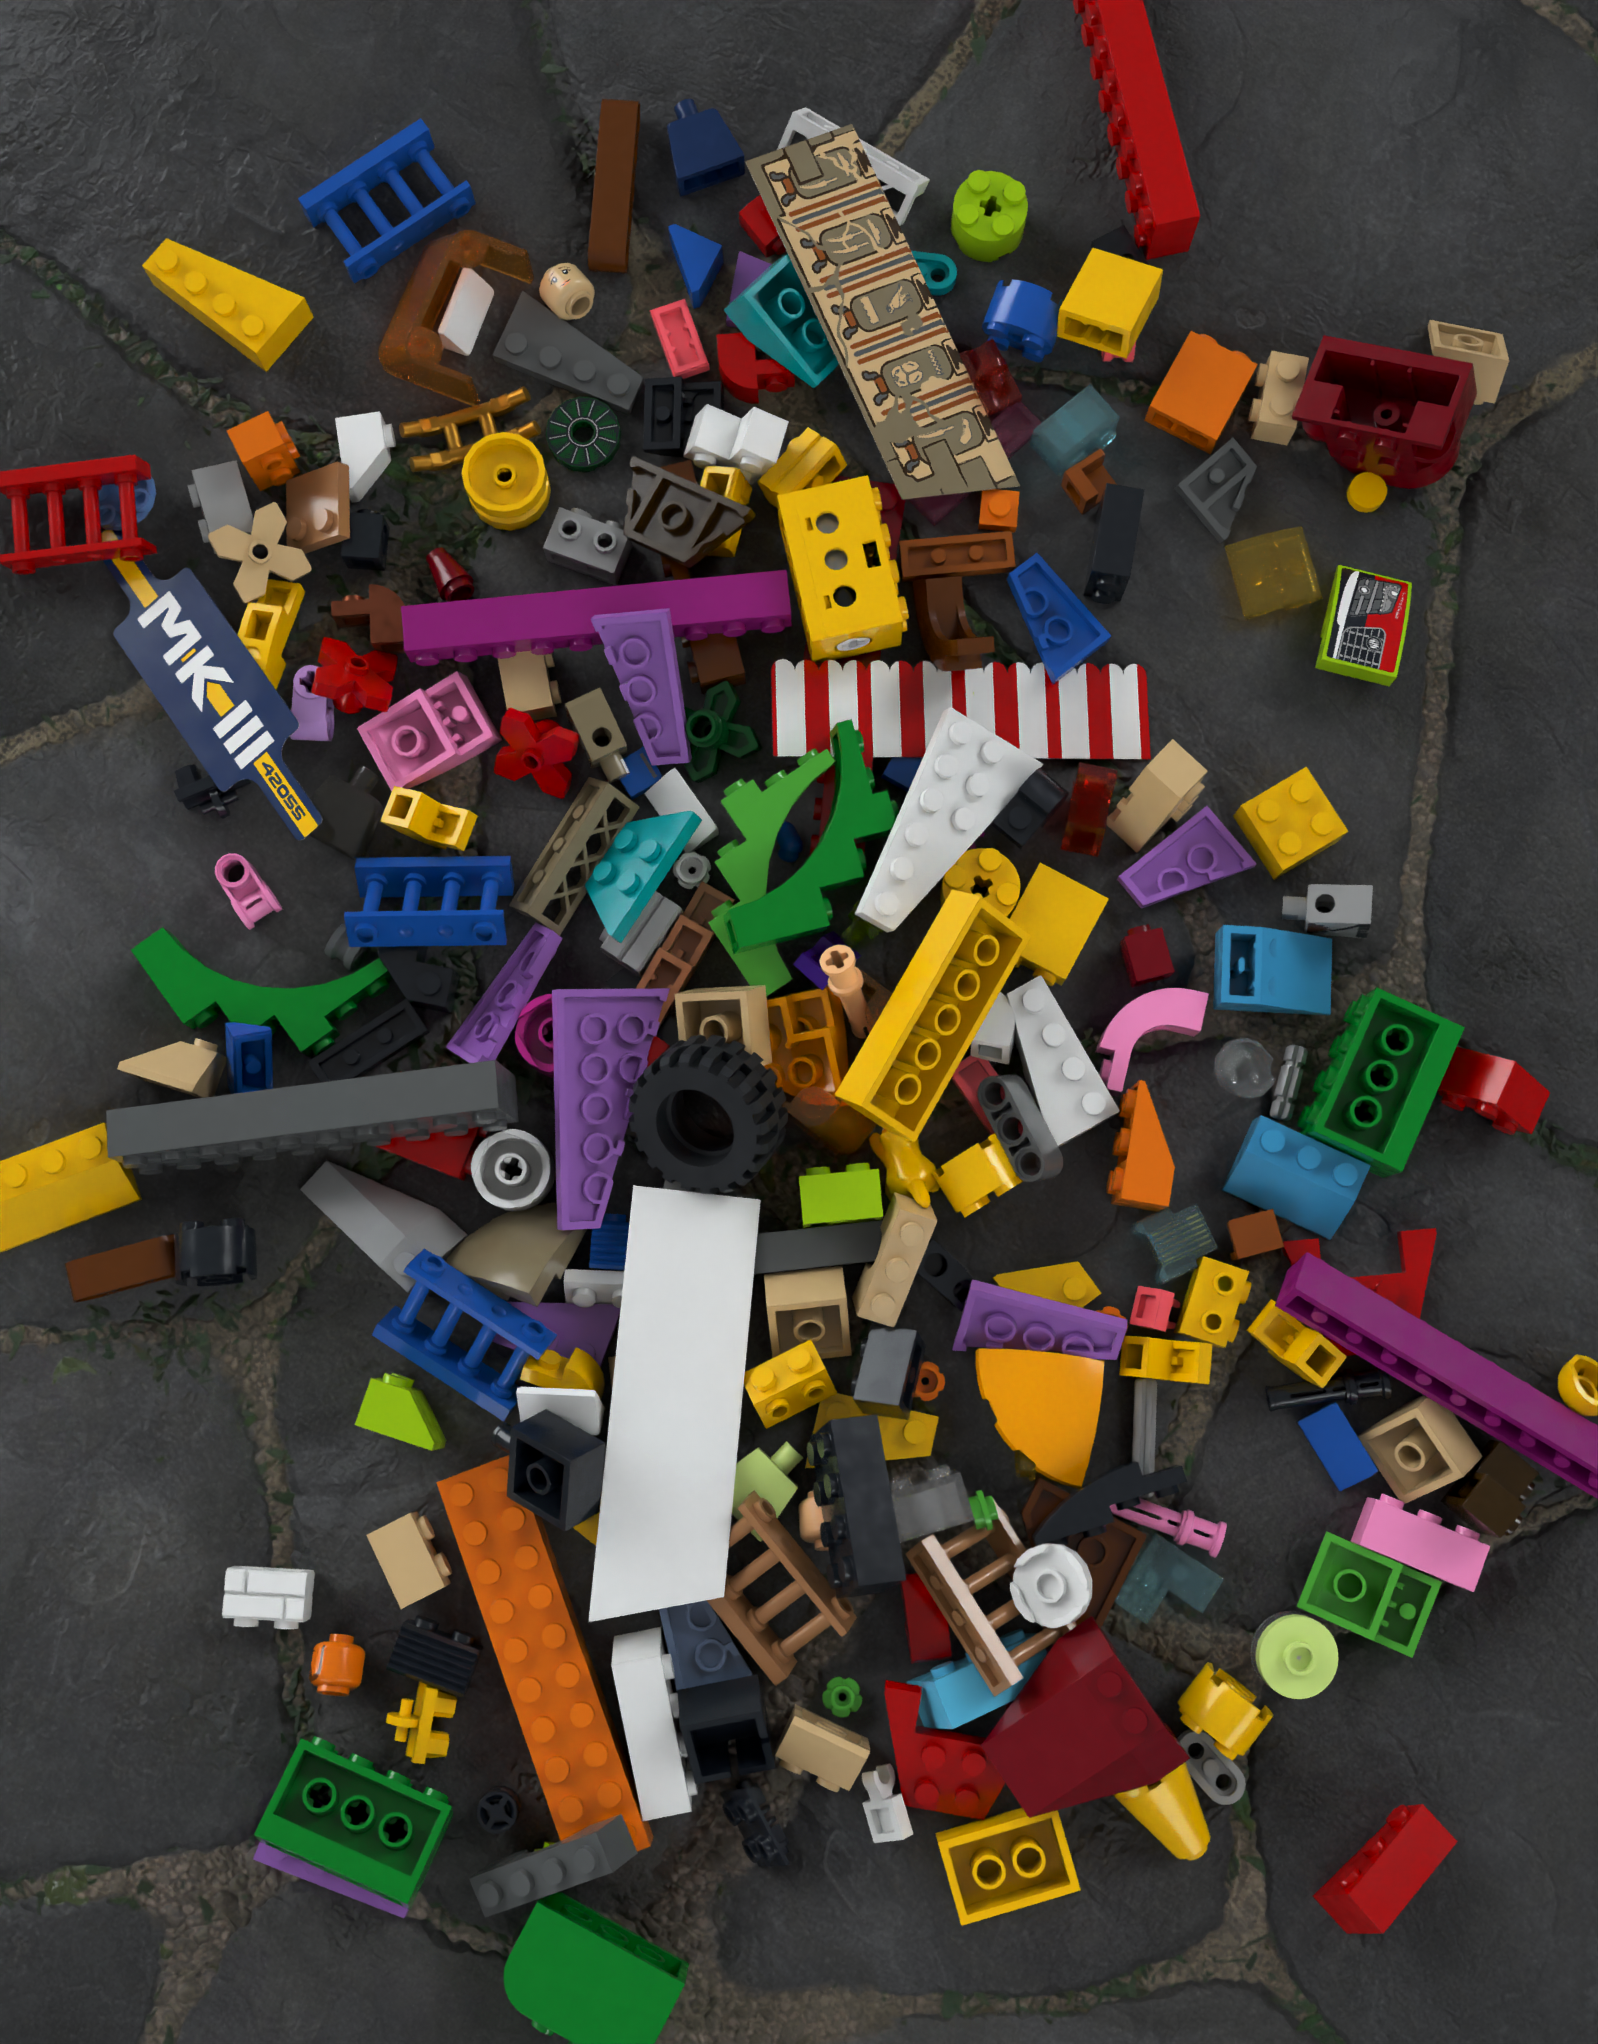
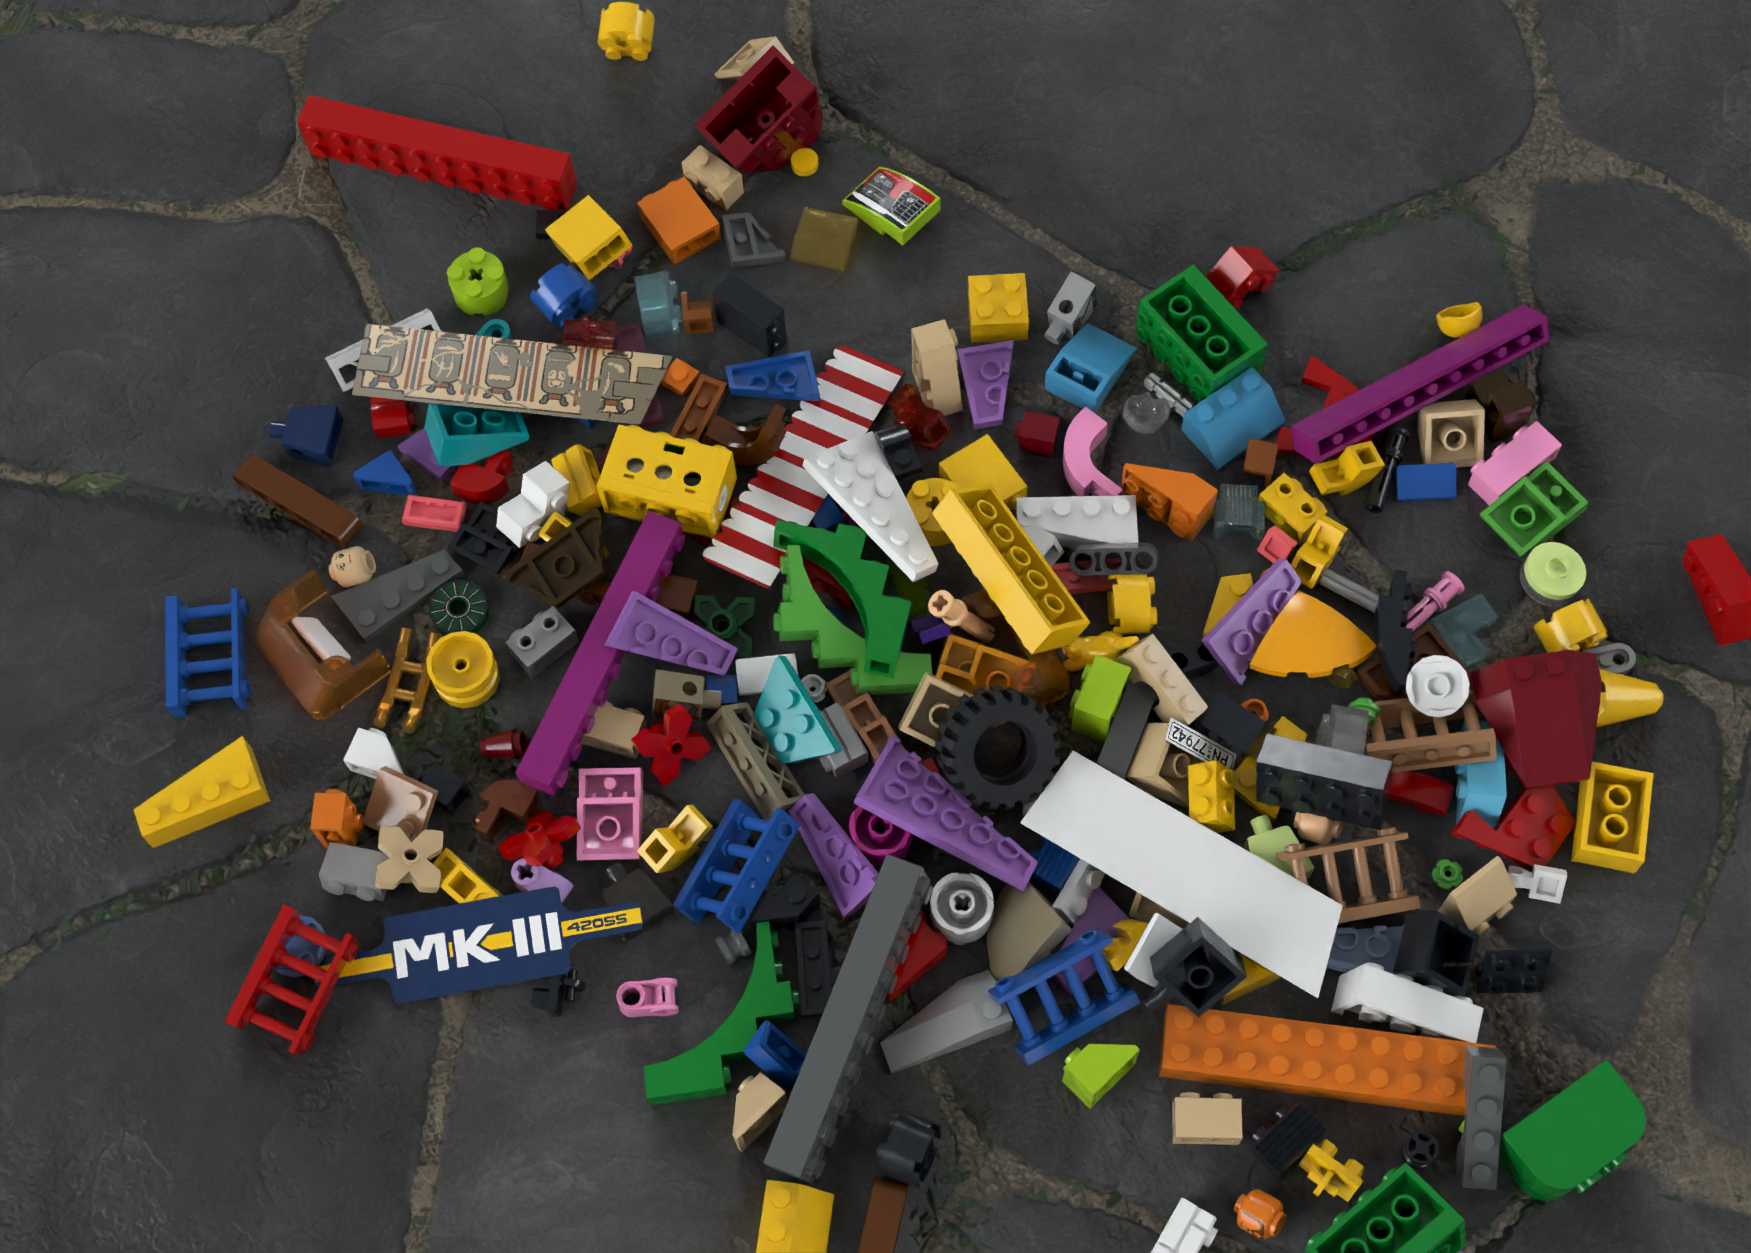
camera: 60 degrees left, 15 degrees down
(841, 1338) = (1198, 744): none -> white sticker
(1420, 183) = (626, 31): none -> yellow brick

